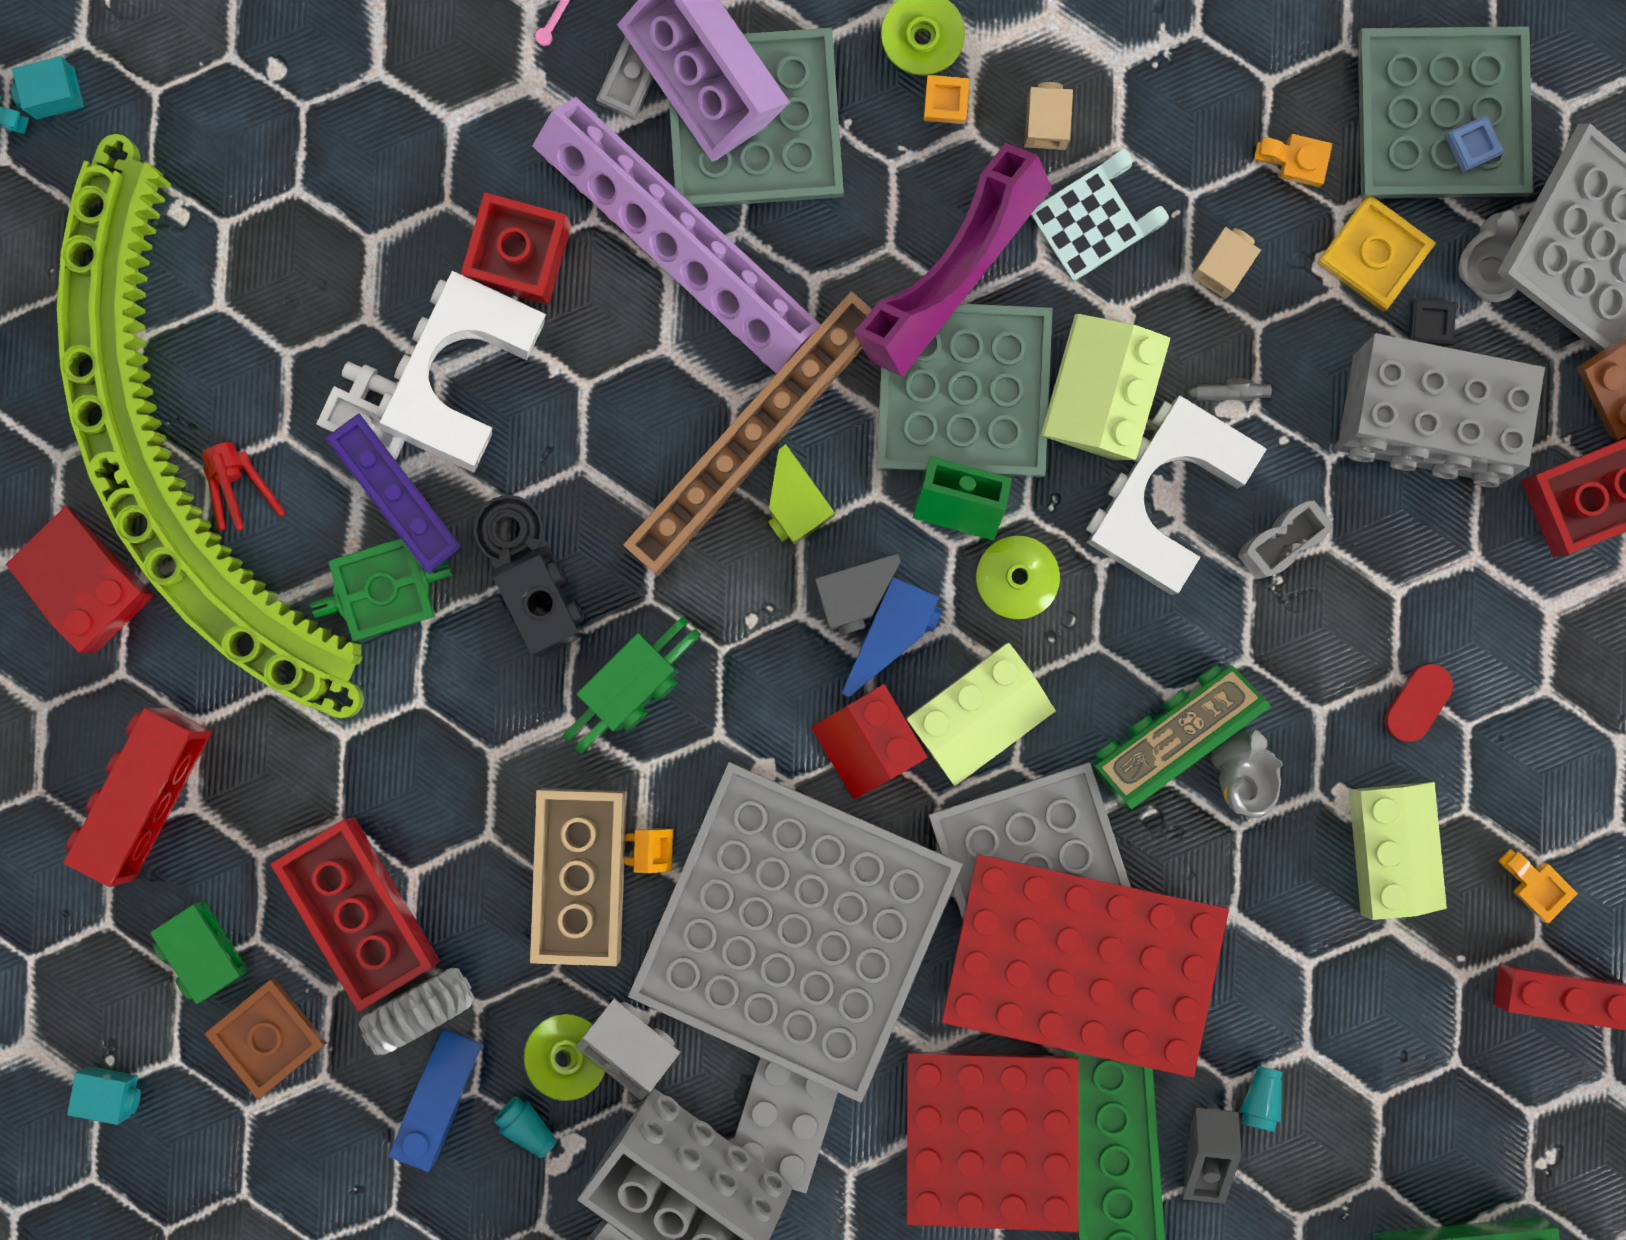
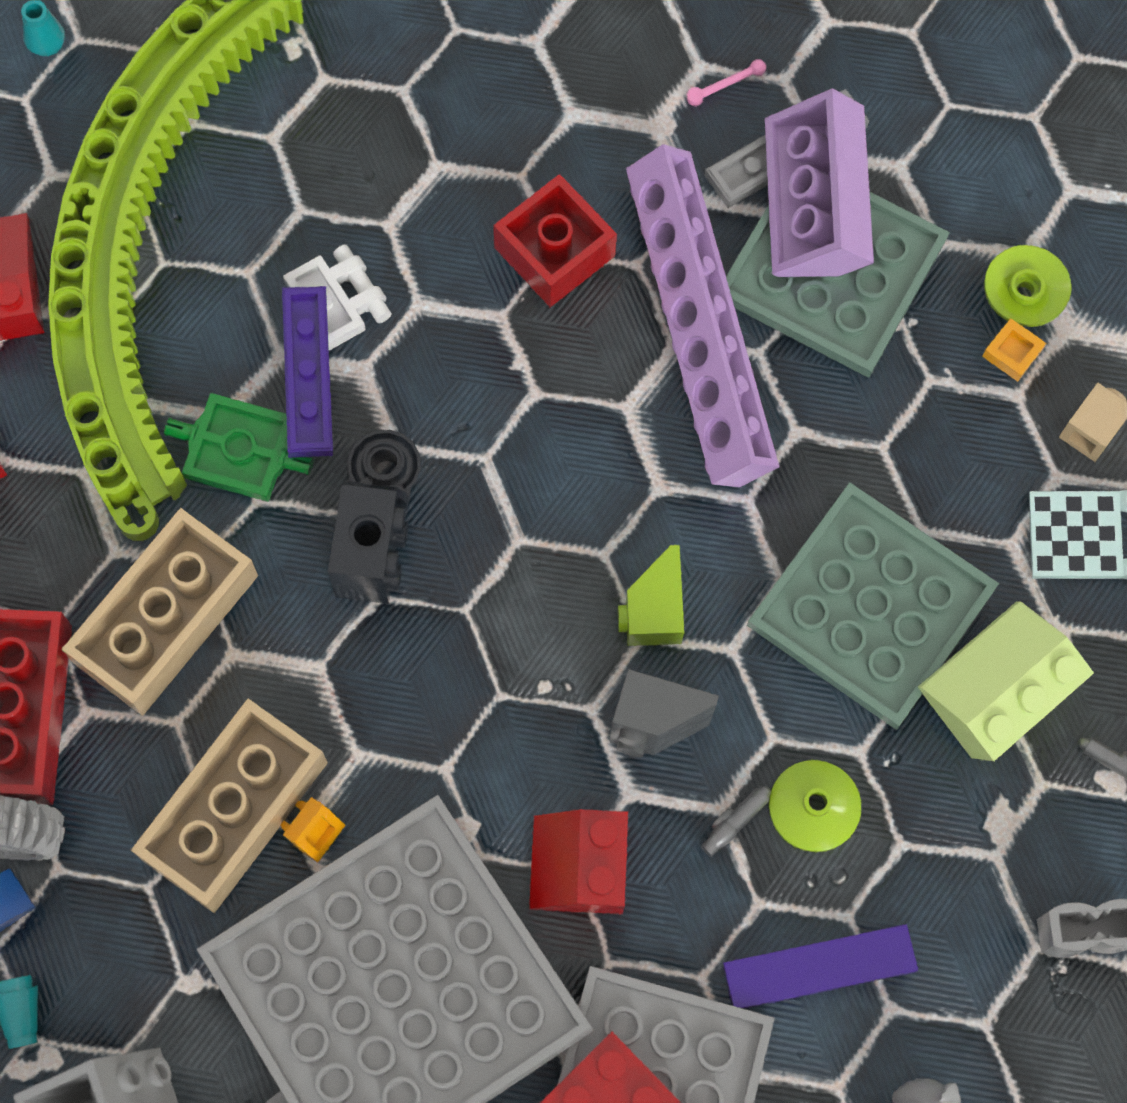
camera: 30 degrees right, 15 degrees down
(224, 467) = (179, 264): red plant -> none
(417, 764) = (161, 611): none -> tan brick
(460, 312) = (470, 262): white arch -> none
(557, 1035) = (121, 960): lime dish -> none
(628, 1048) = (163, 996): light grey brick -> none
(629, 684) = (397, 663): green brick -> none
(750, 437) = (656, 520): medium nougat brick -> none
(896, 626) = (670, 775): blue slope -> none
(962, 498) = (809, 695): green brick -> none
(964, 631) = (732, 821): none -> flat silver piece
(981, 714) = (700, 904): yellowish green slope -> none
(1003, 200) = (1015, 461): magenta arch -> none
(1099, 700) = (820, 967): none -> dark purple tile
(1178, 735) = (876, 1045): slope -> none
(1181, 435) = (1050, 772): white arch -> none

